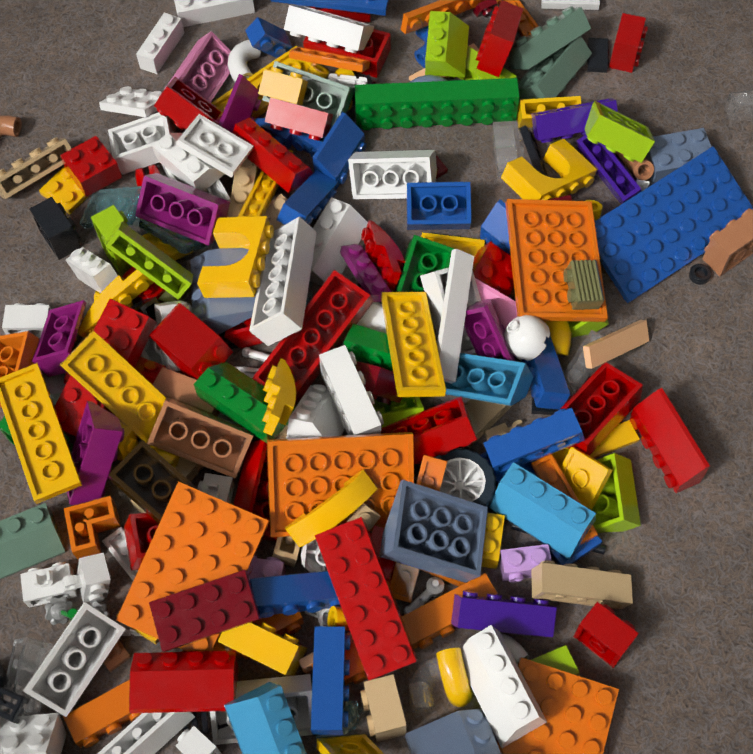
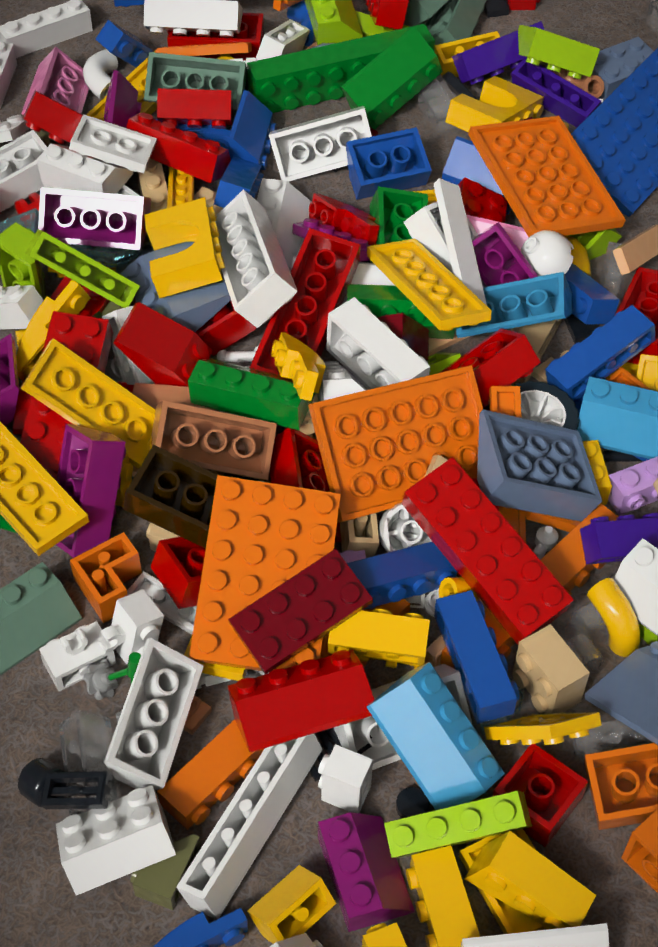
camera: 20 degrees left, 10 degrees down
(283, 87) = (167, 73): yellow brick -> none
(332, 510) = (408, 469): yellow slope -> none
(396, 66) = (283, 40): none -> white brick
(471, 126) = (393, 77): none -> green slope
(583, 285) = (590, 189): olive brick -> none

